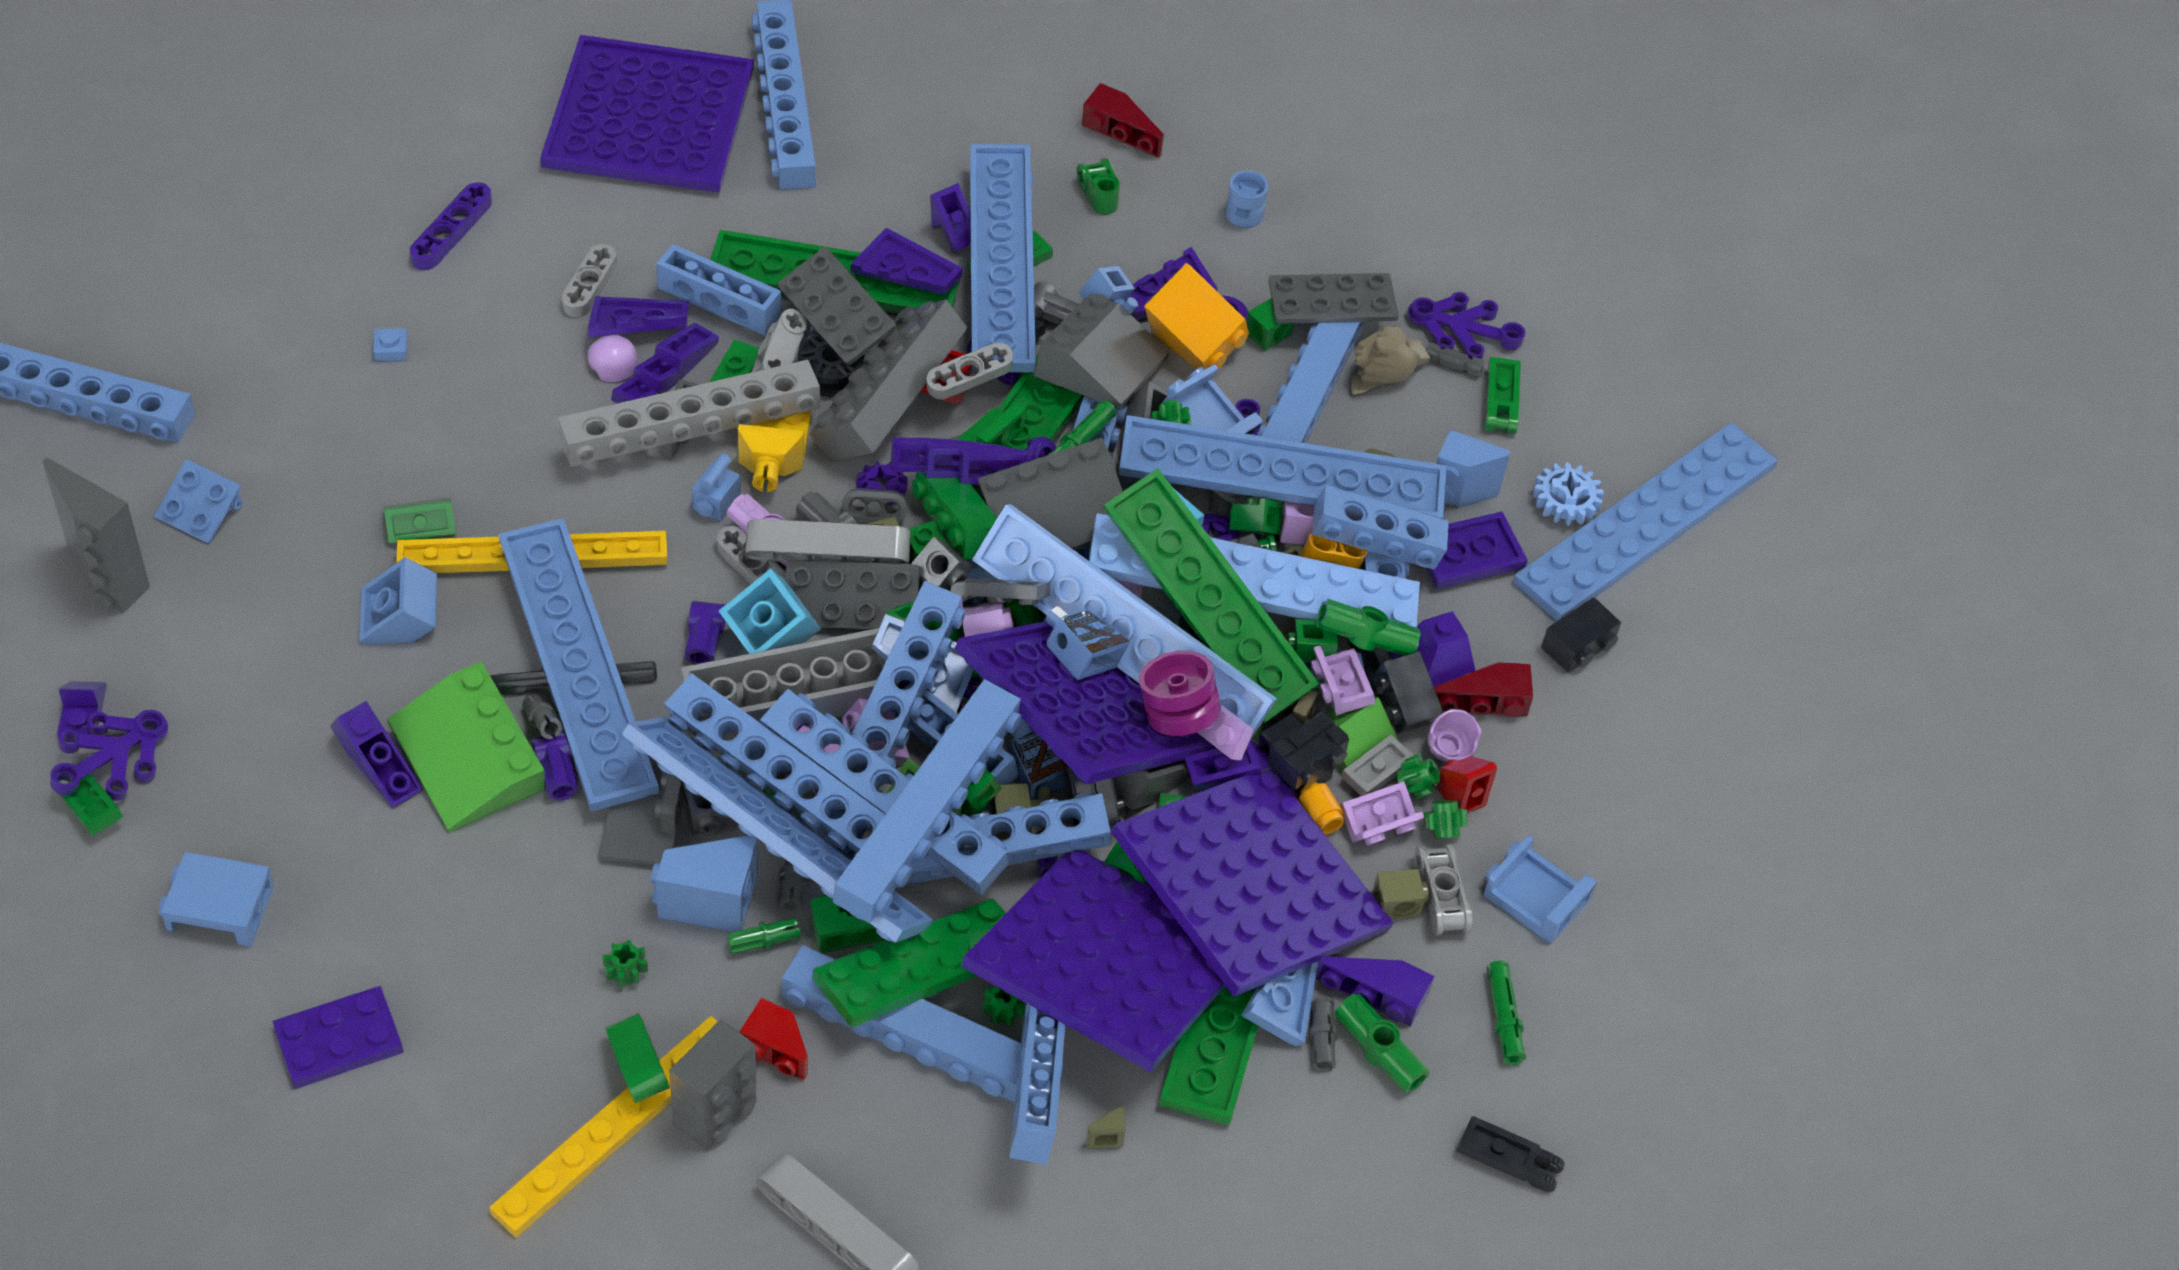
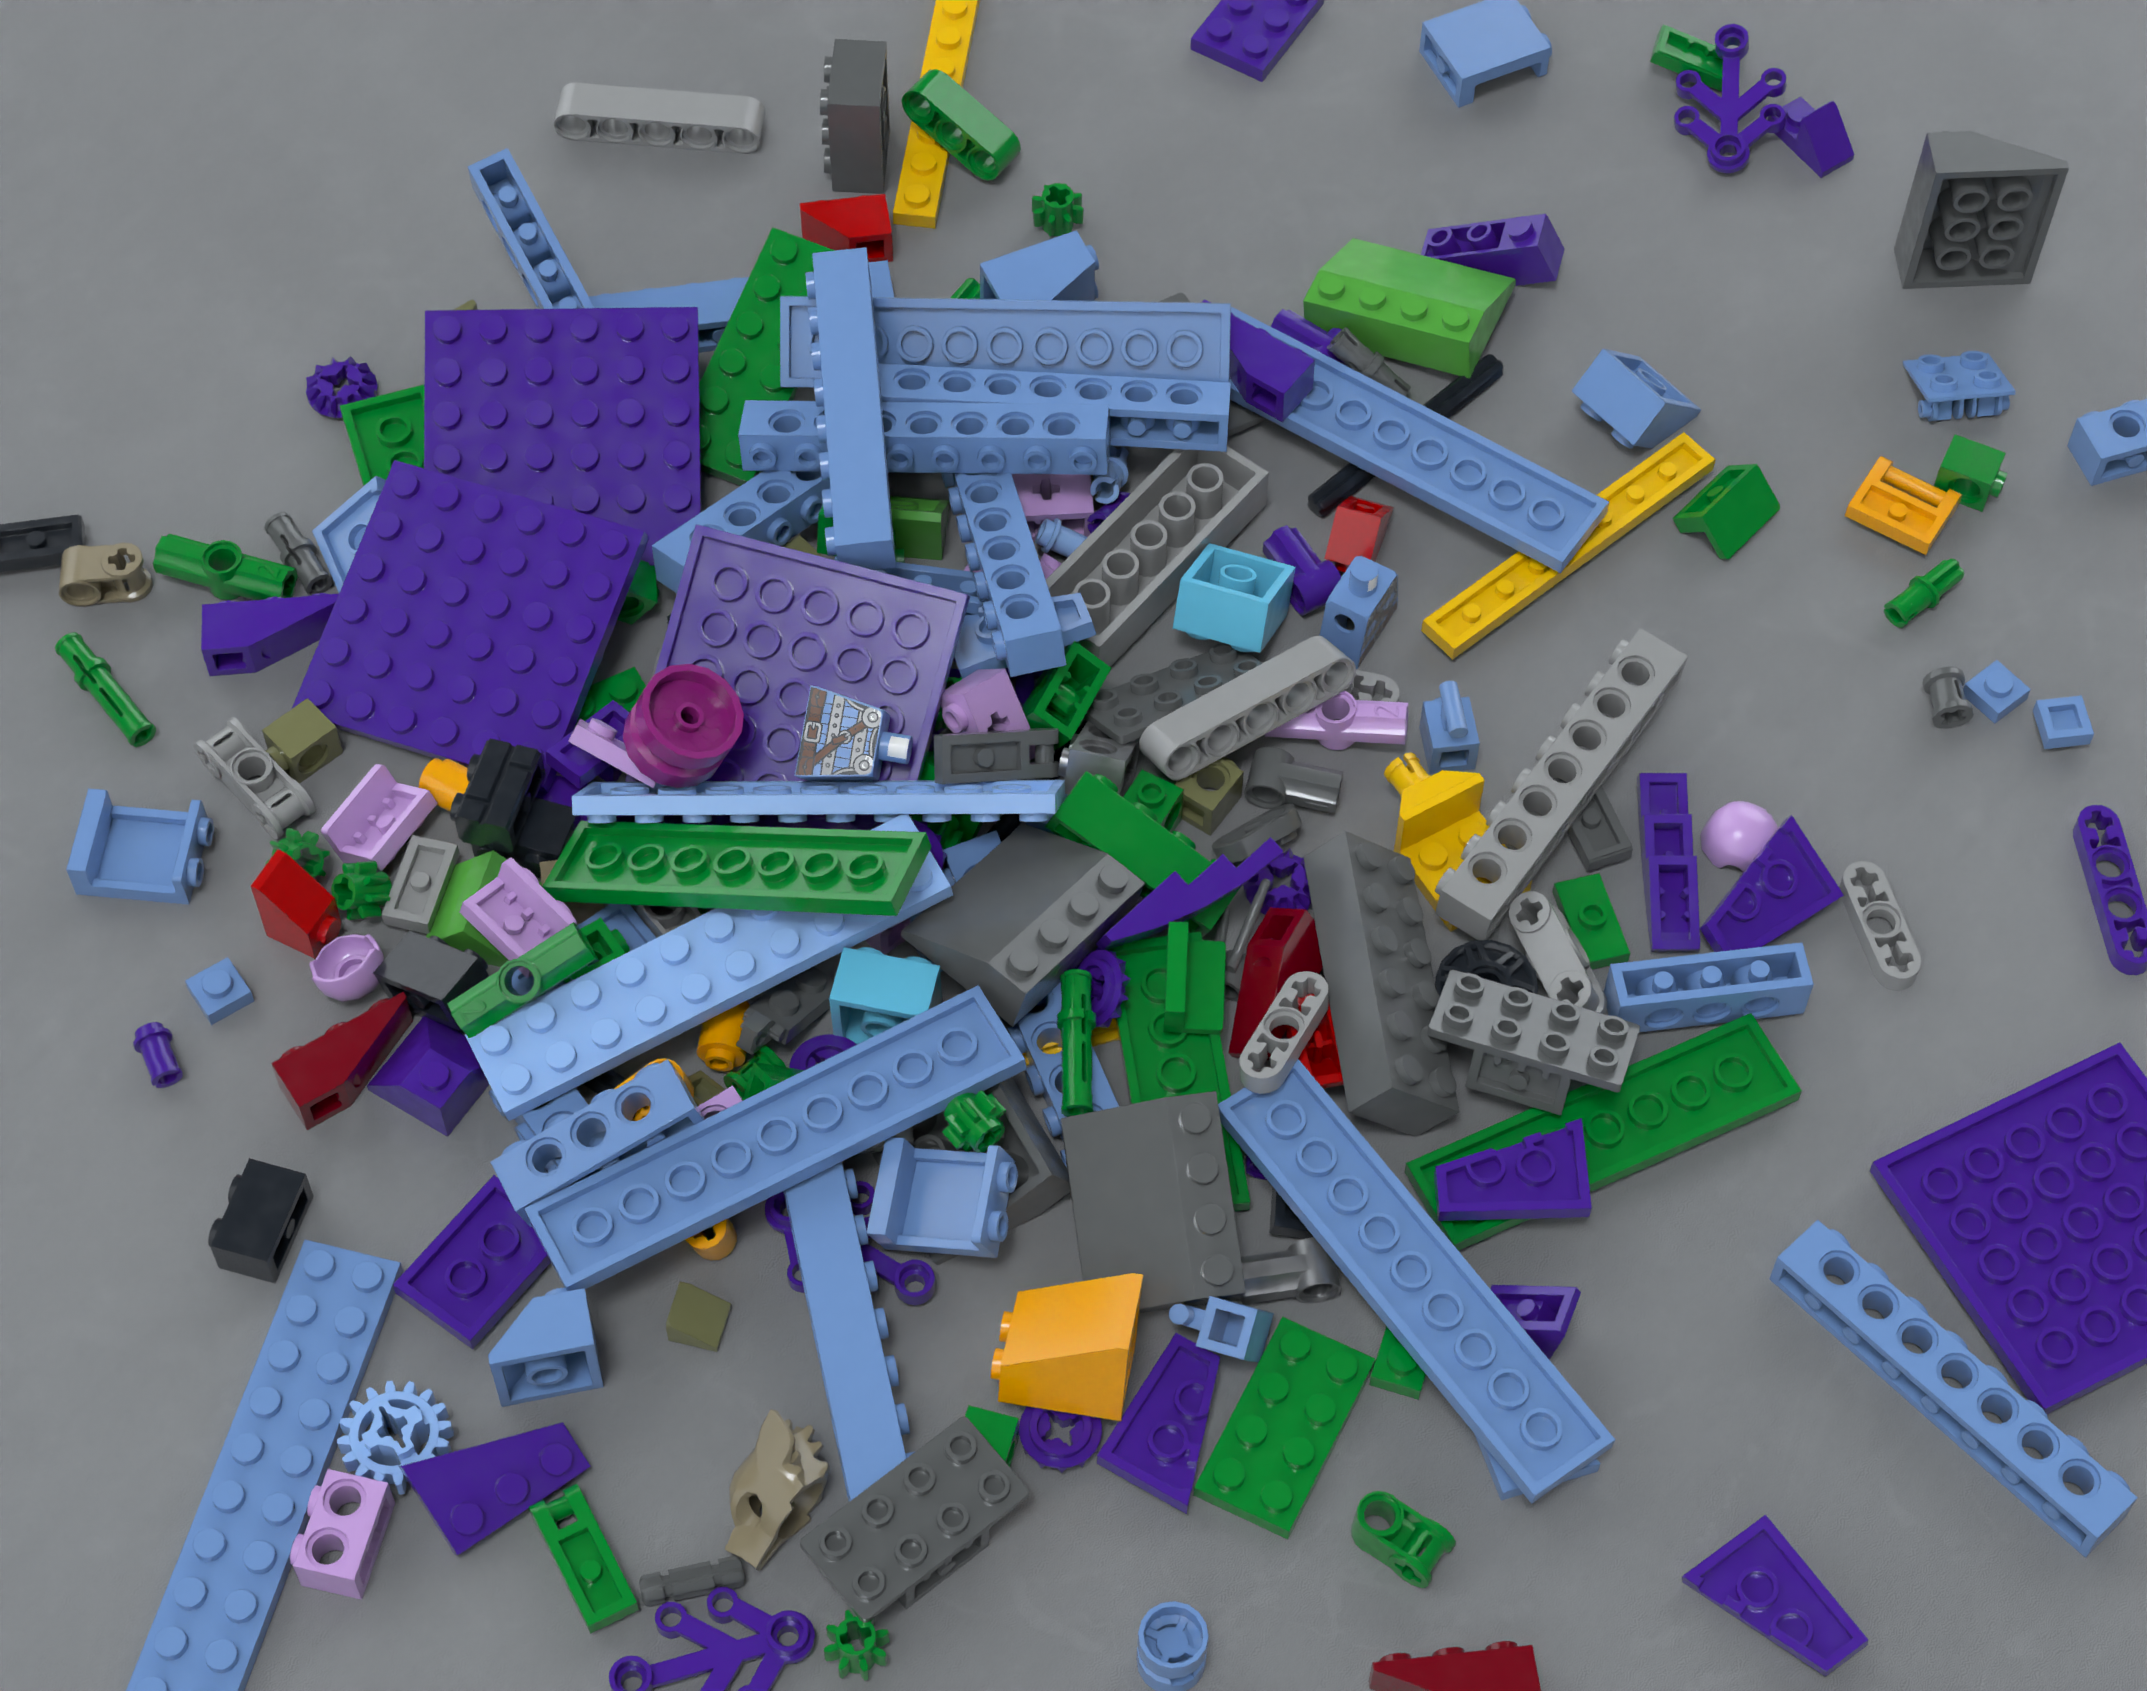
camera: 150 degrees right, 5 degrees up
(263, 447) = (1972, 471): none -> green brick
(328, 454) = (1898, 513): none -> light orange plate
(365, 409) = (1923, 592): none -> green axle
(378, 304) = (2063, 722): none -> medium blue plate
(423, 349) = (1948, 697): none -> dark grey bush
(611, 715) = (1267, 370): none -> dark purple slope
(648, 630) = (1357, 531): none -> red slope
(697, 577) = (1367, 597): none -> medium blue torso
(941, 422) = (1279, 948): none -> dark red slope
(947, 76) = (1779, 1596): none -> dark purple wing
(1135, 248) = (1284, 1428): none -> green plate
(1216, 1163) = (320, 388): none -> dark purple gear
(1400, 283) = (856, 1661): none -> green gear
(1467, 1092) = (99, 572): none -> dark tan piece
(1534, 782) = (219, 991): none -> medium blue plate
(1537, 444) = (493, 1482): none -> dark purple wing
(1591, 769) = (154, 1044): none -> dark purple pin
(1623, 466) = (354, 1534): none -> lavender brick

